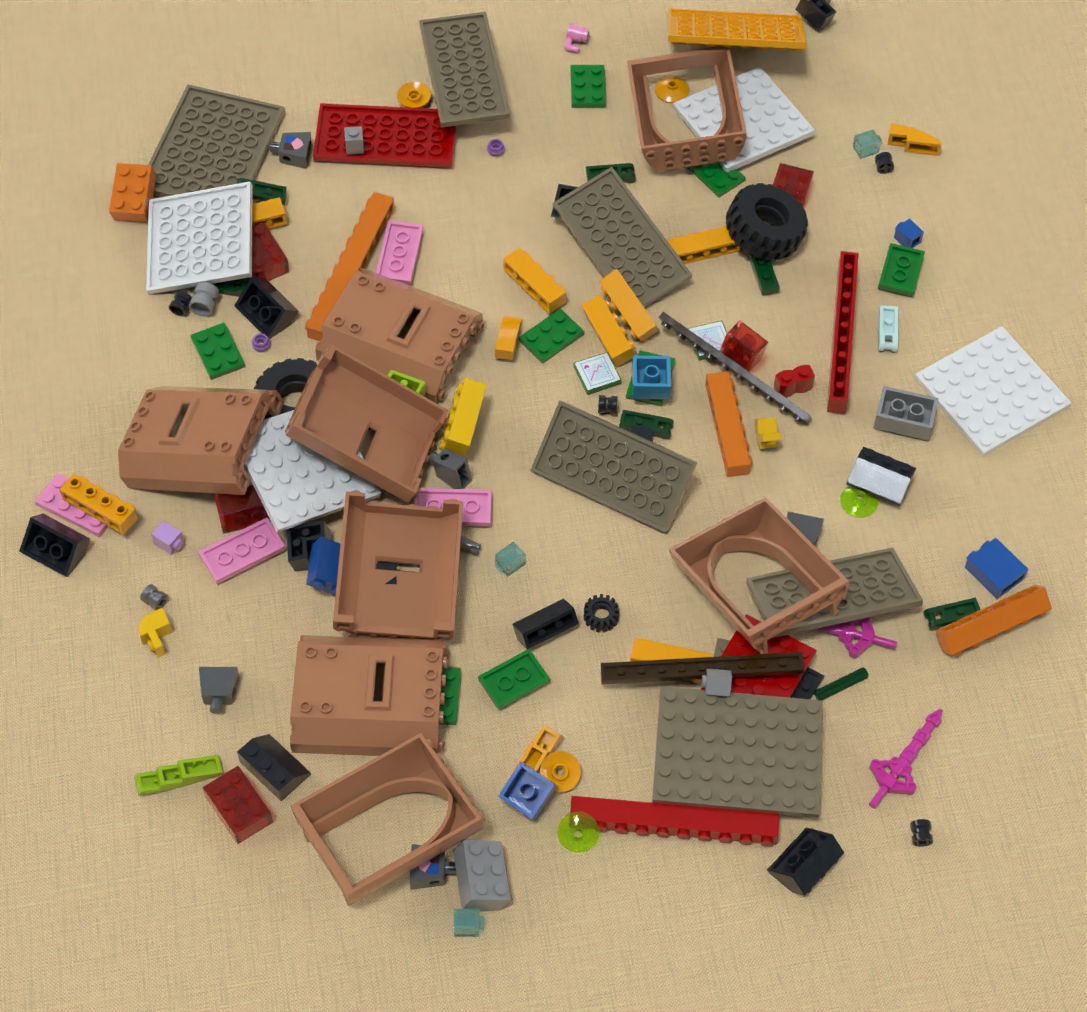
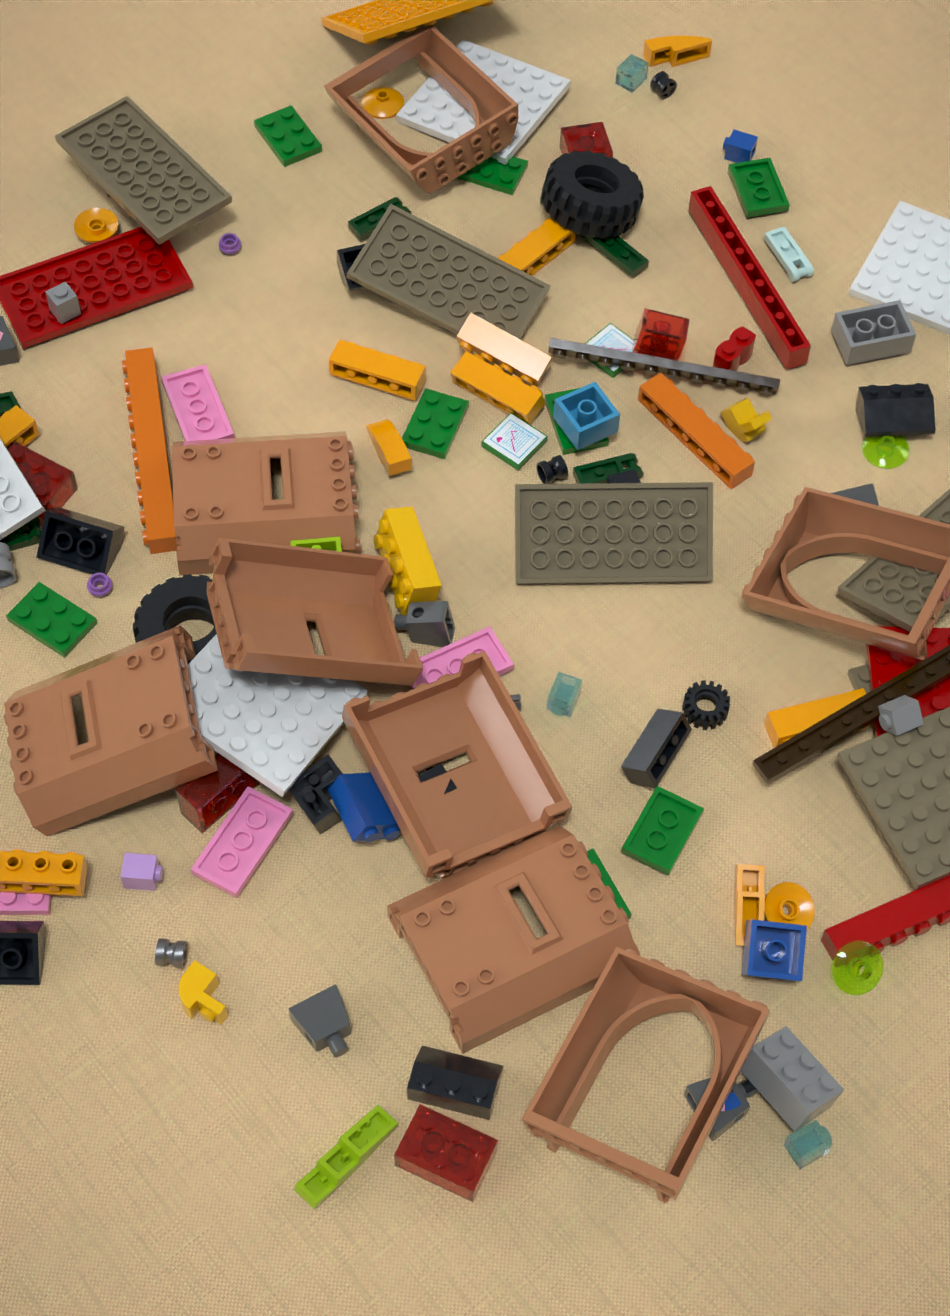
camera: 30 degrees left, 0 degrees up
(577, 34) = (239, 84): bright pink piece -> none

